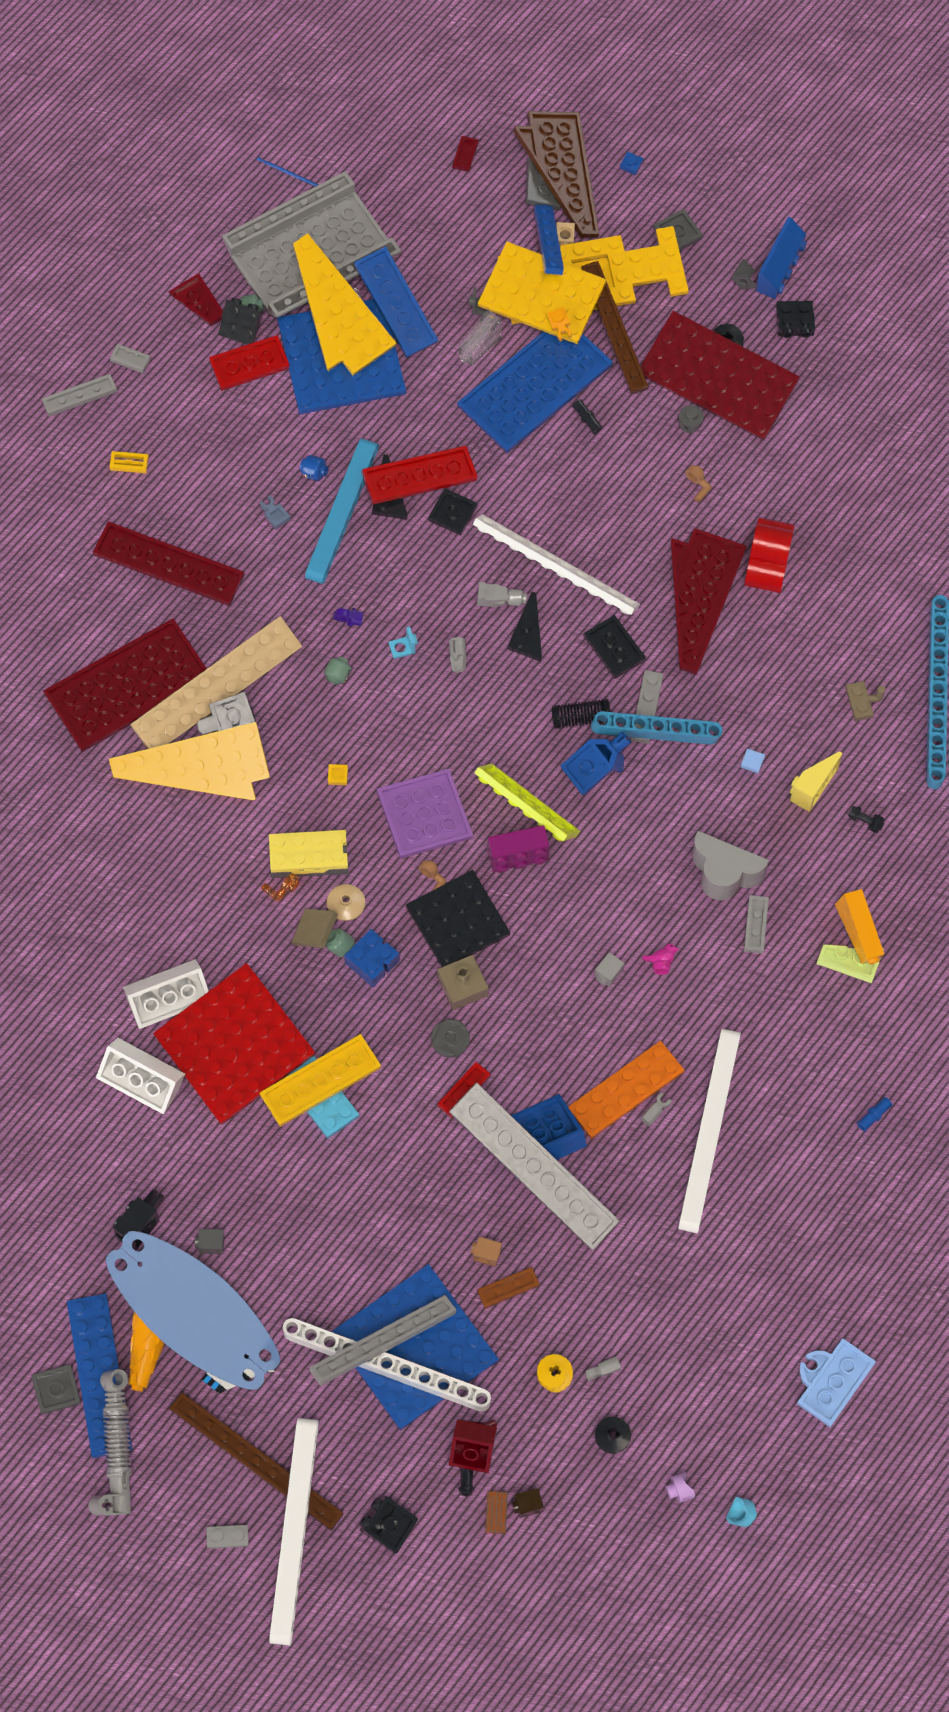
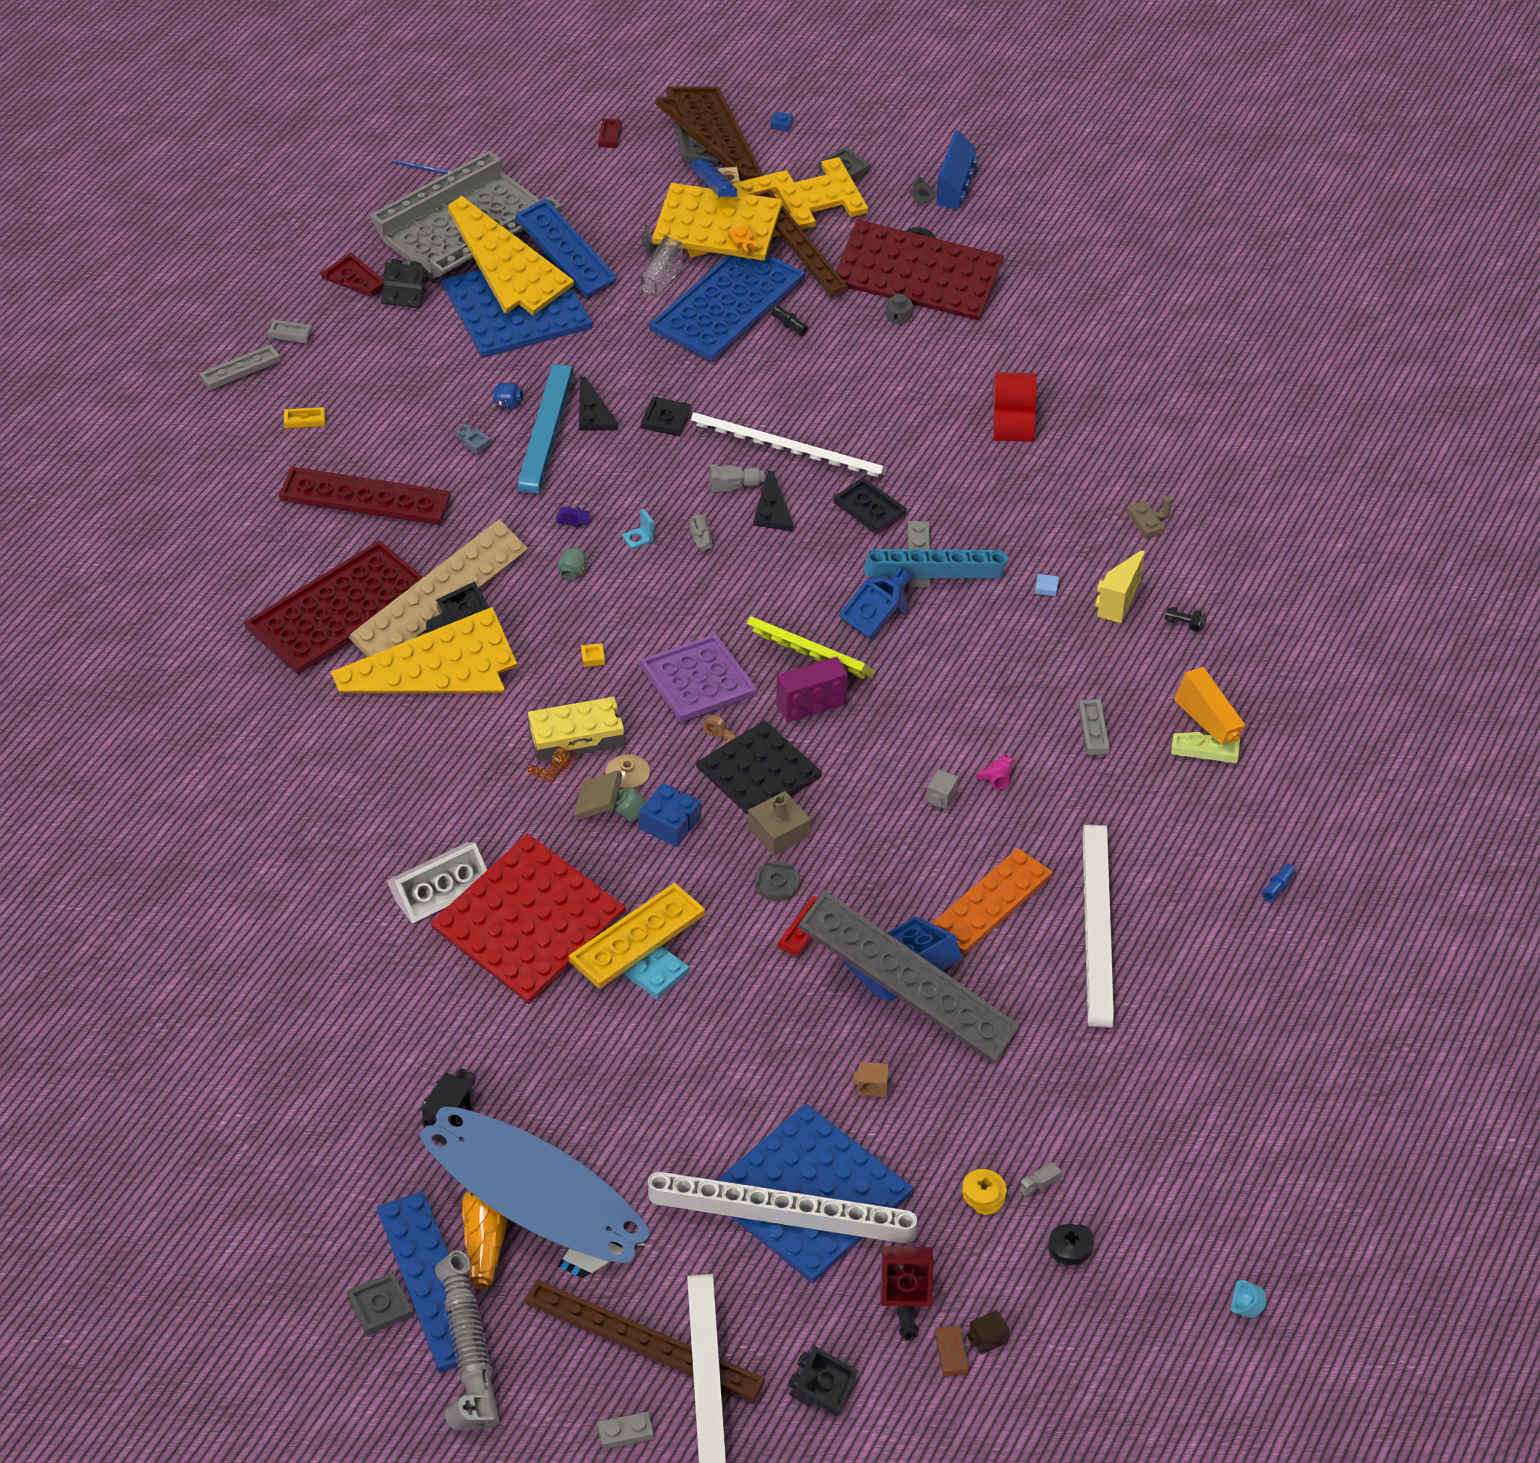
camera: 10 degrees left, 20 degrees down
(140, 1075) = (422, 965): white slope -> none
(210, 1241) = (540, 1117): dark grey brick -> none
(249, 362) = (419, 319): red plate -> none
(382, 1340) = (771, 1176): light grey plate -> none
(419, 474) = (623, 385): red plate -> none
(508, 1287) = (905, 1115): dark orange tile -> none
(604, 704) = (823, 571): black piece -> none
(654, 1110) = (1029, 915): light grey bar -> none
(679, 1488) = (1166, 1286): lavender piece -> none
(696, 475) = (917, 353): medium nougat plate -> none
(701, 584) = (949, 444): dark red wing -> none
(726, 867) = (1046, 674): light grey brick -> none
(795, 318) = (983, 220): black plate -> none
(833, 1380) = (1312, 1149): light blue plate -> none
(935, 699) = (1227, 500): dark azure beam -> none

